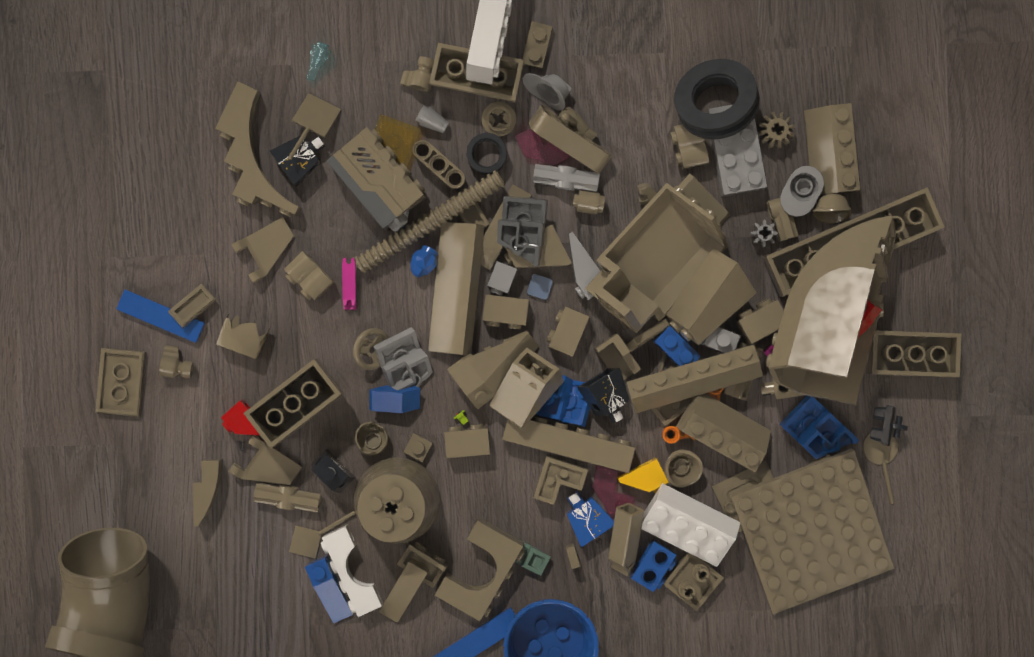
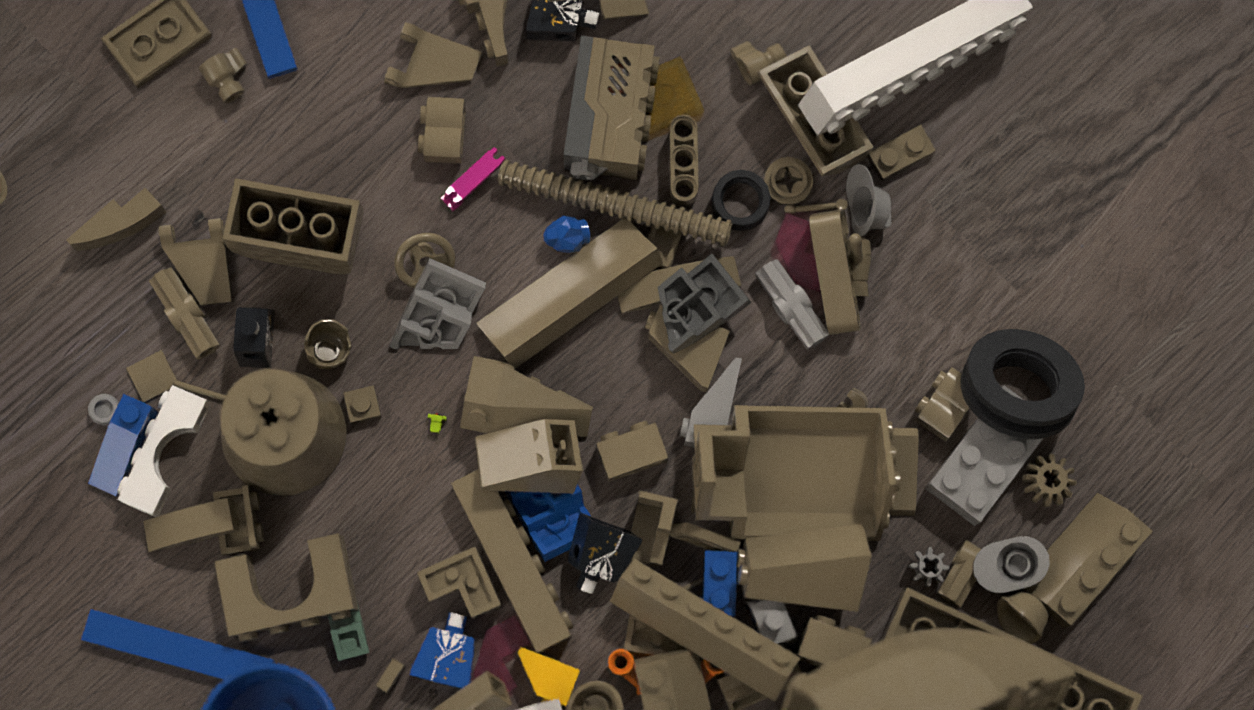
camera: 45 degrees right, 10 degrees down
(192, 306) = (303, 39): dark tan tile -> none
(236, 421) = (219, 188): red slope -> none
(241, 337) = (316, 118): dark tan piece -> none
(301, 582) = (102, 408): none -> light grey tile
(392, 400) = (390, 333): blue slope -> none
(431, 119) = (723, 112): light grey cone -> none
(467, 442) = (415, 450): dark tan brick -> none
(501, 278) = (624, 331): light grey brick -> none
(505, 310) = (593, 366): dark tan brick -> none
(535, 103) = (840, 204): none -> dark tan hinge
(539, 286) = (651, 381): sand blue piece -> none
(589, 202) = (788, 351): dark tan brick -> none

